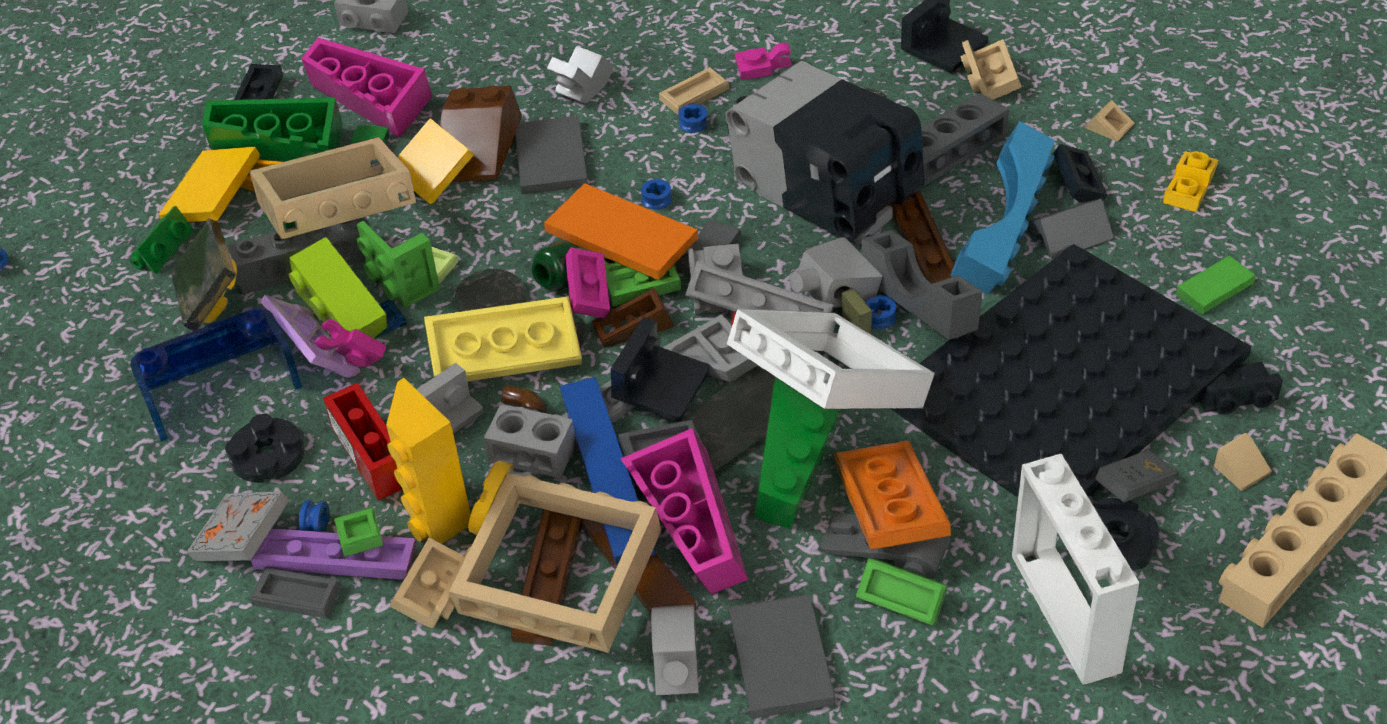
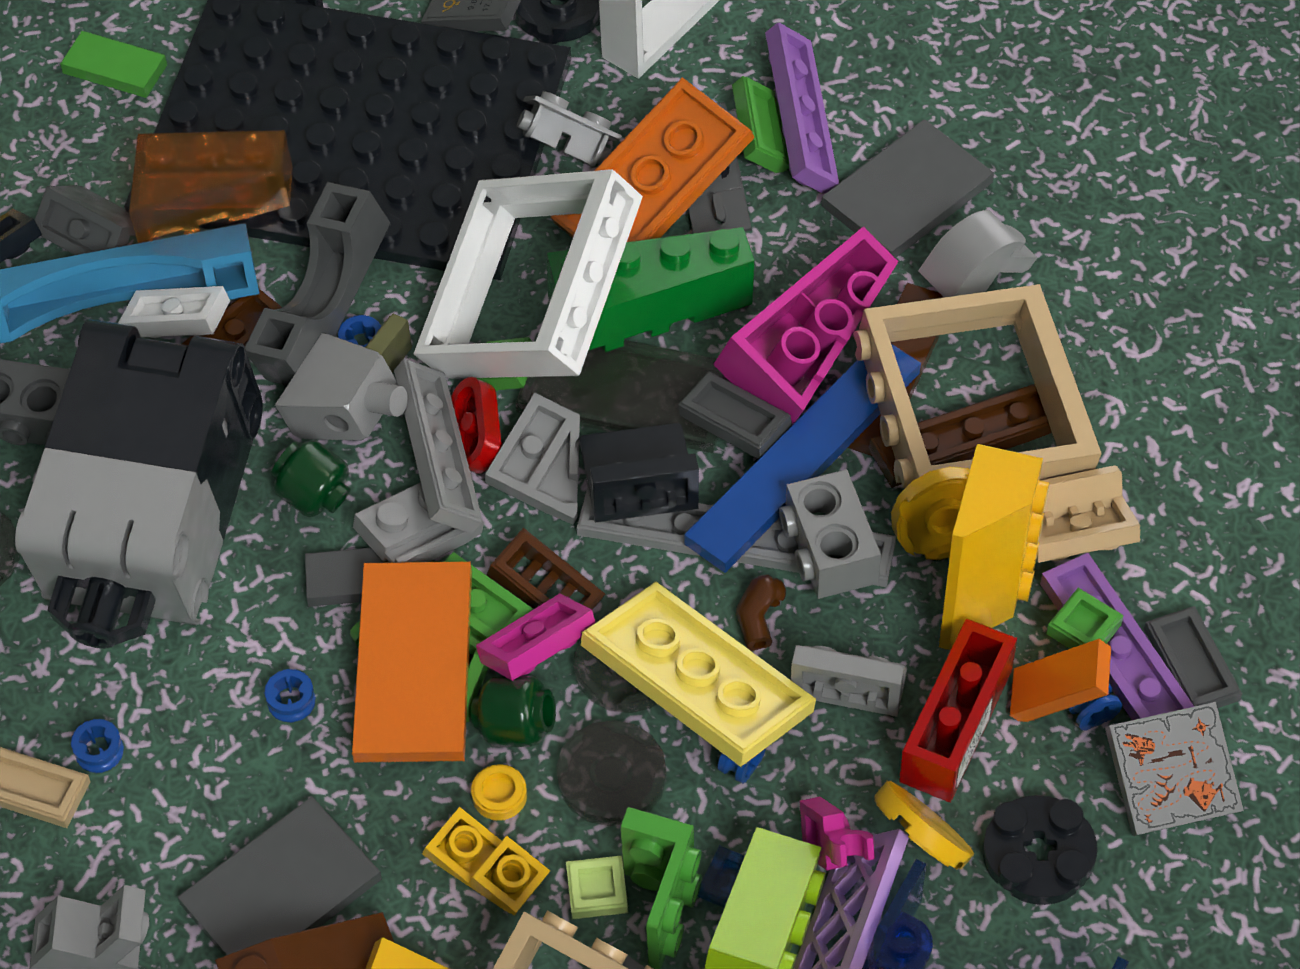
camera: 125 degrees left, 10 degrees up
(310, 379) = (924, 826): none -> yellow tile
(334, 496) = (1060, 681): none -> orange tile
(476, 232) = (485, 863): none -> yellow slope
(522, 250) = (499, 792): none -> yellow tile
(786, 244) = (311, 478): none -> dark green head
(901, 623) = (801, 109): none -> medium lavender plate
(955, 229) = (176, 311): none -> white plate
(976, 472) = (551, 119): none -> light grey hinge
(1048, 259) = (205, 178): none -> clear orange wedge

